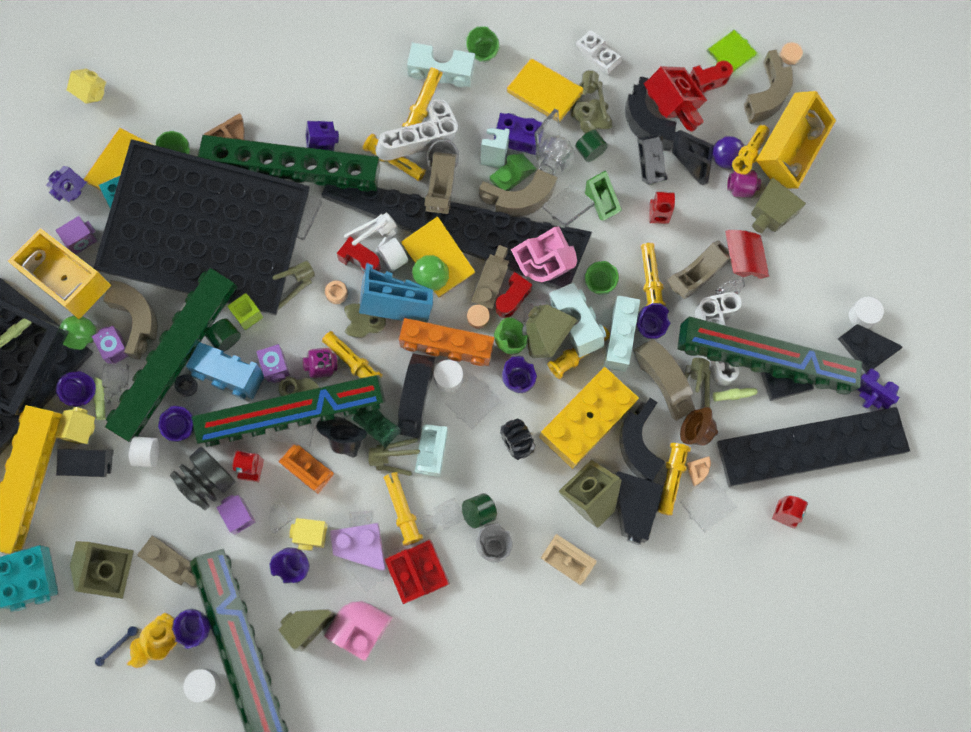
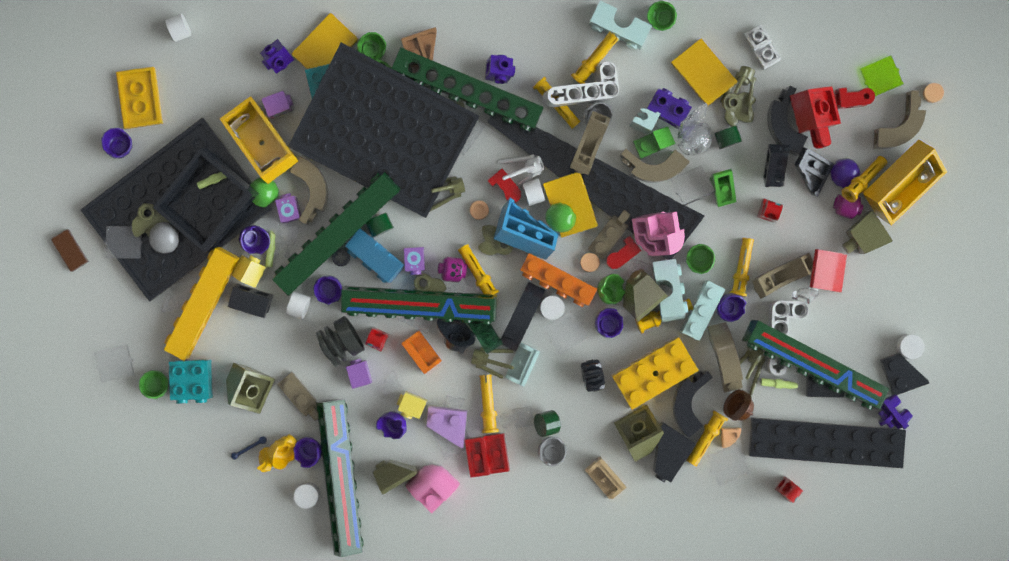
camera: 20 degrees right, 15 degrees up
(245, 311) = (401, 210): lime panel -> none

